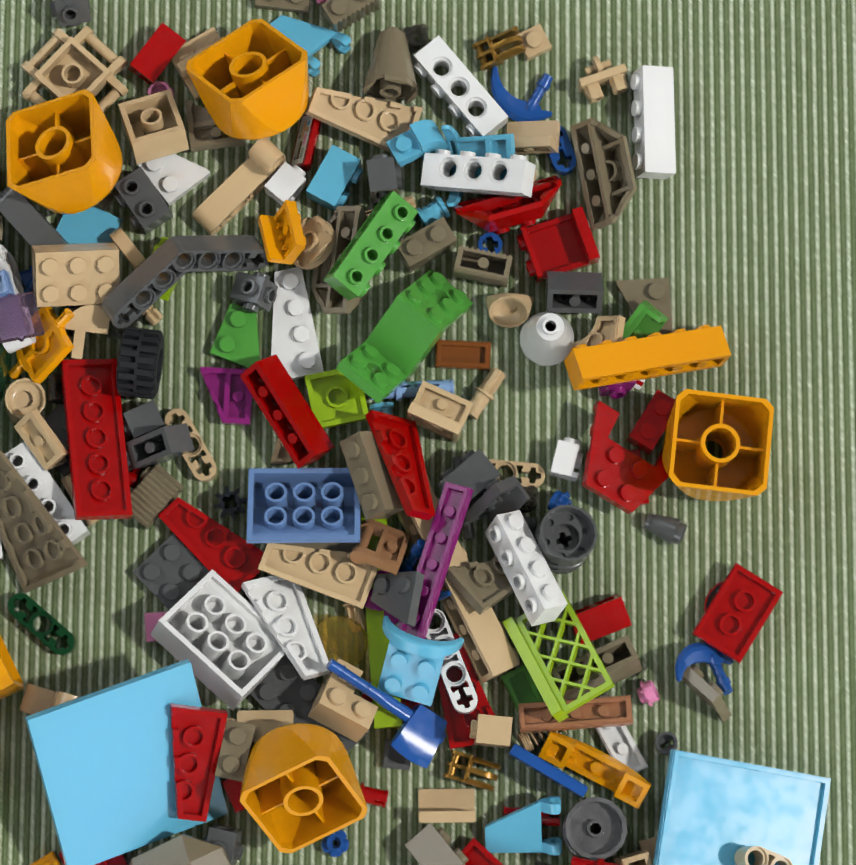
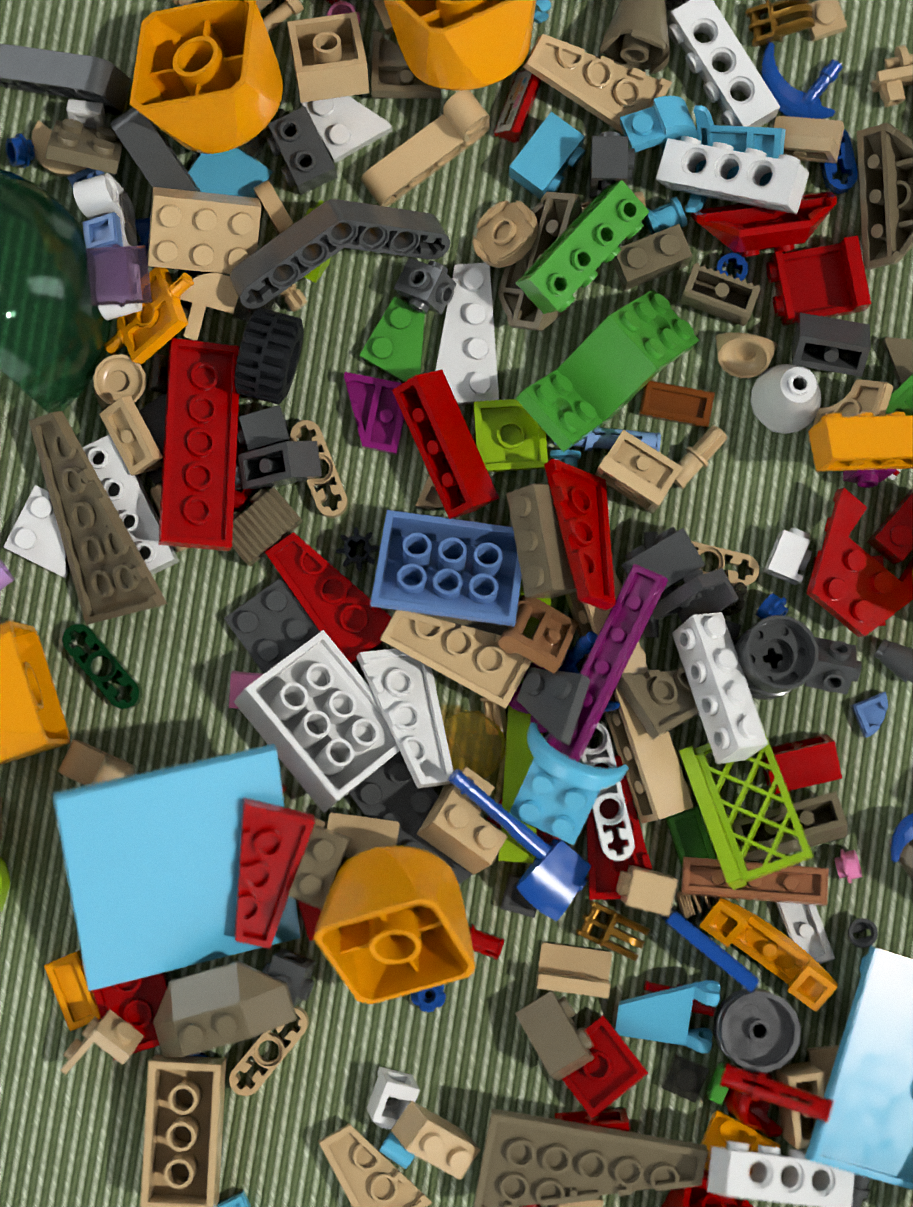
camera: 20 degrees right, 5 degrees up
(282, 234) = (472, 218): light orange bracket -> none
(286, 183) = (485, 155): white brick -> none
(612, 539) = (835, 666): none -> dark grey brick
(648, 572) = (870, 713): none -> medium blue tile

